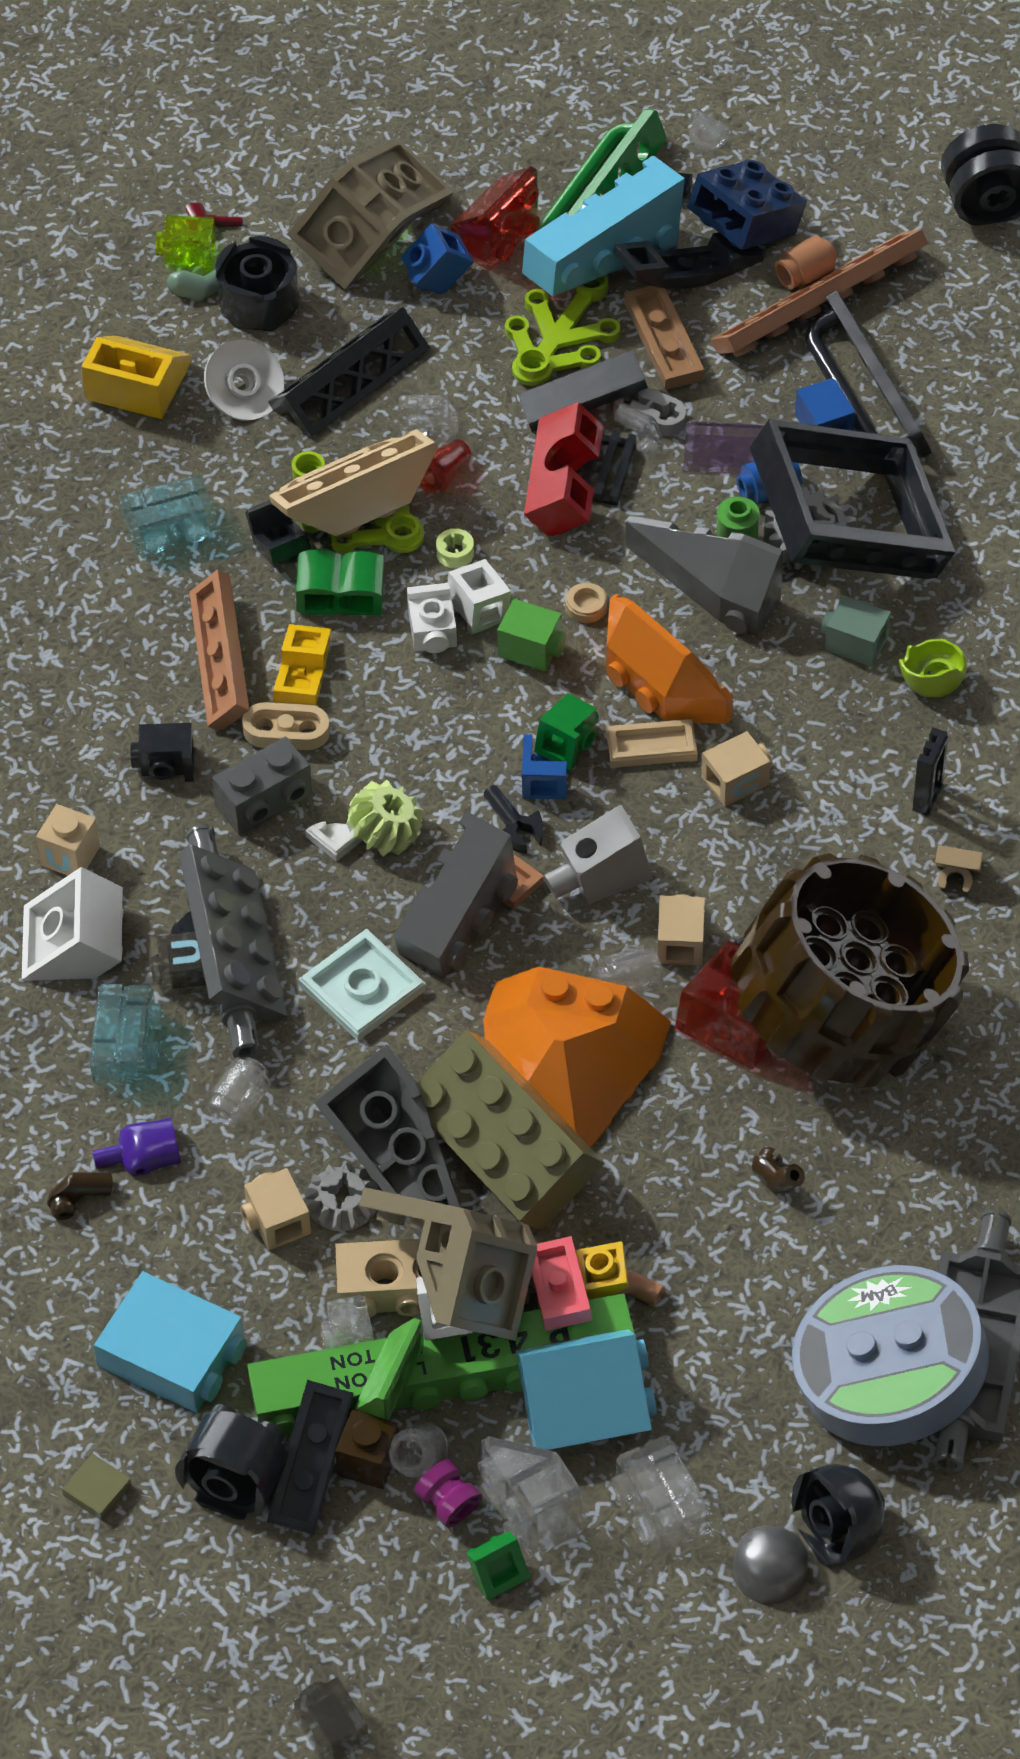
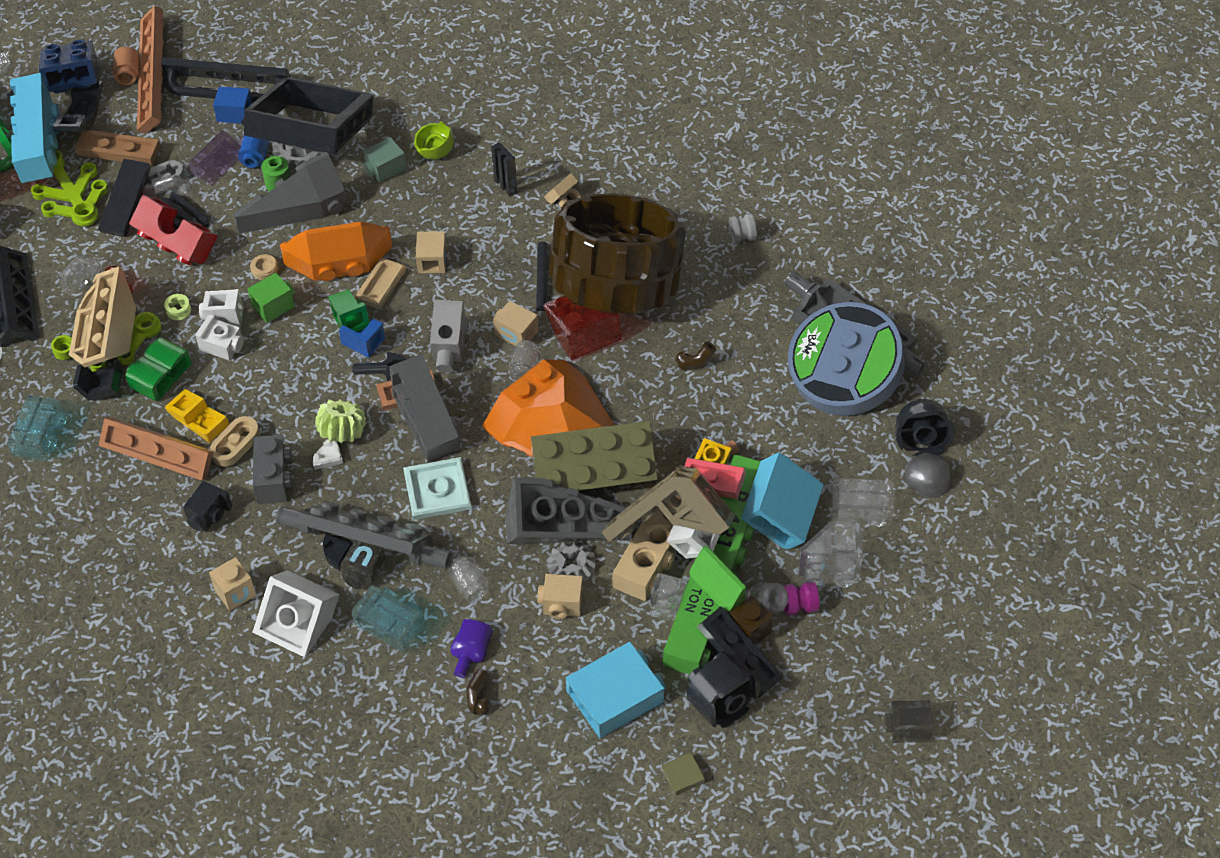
camera: 60 degrees left, 0 degrees up
(498, 1565) = (858, 596): green tile -> none

